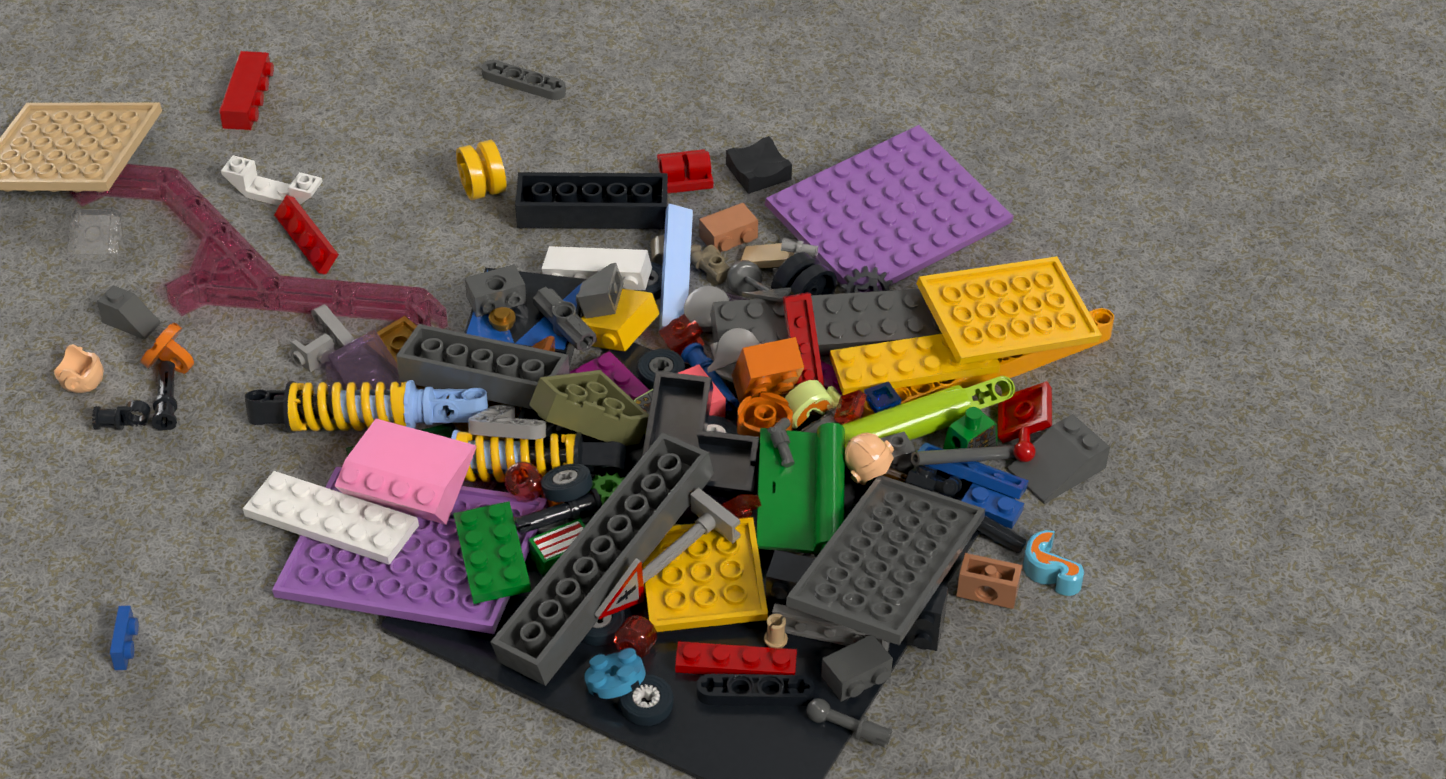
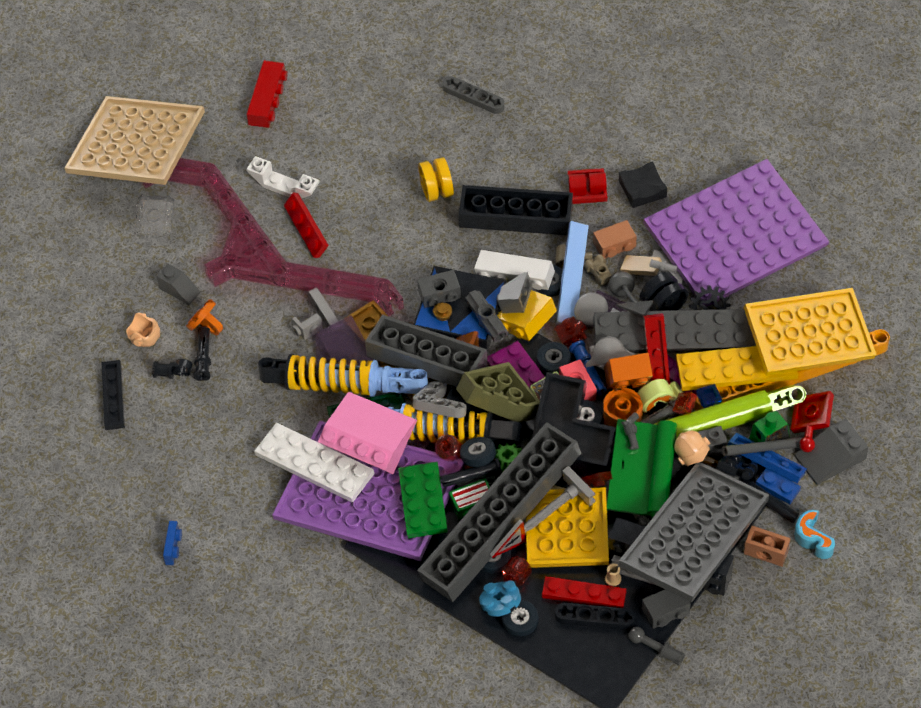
camera: 10 degrees right, 10 degrees up
(35, 454) = (113, 395): none -> black plate

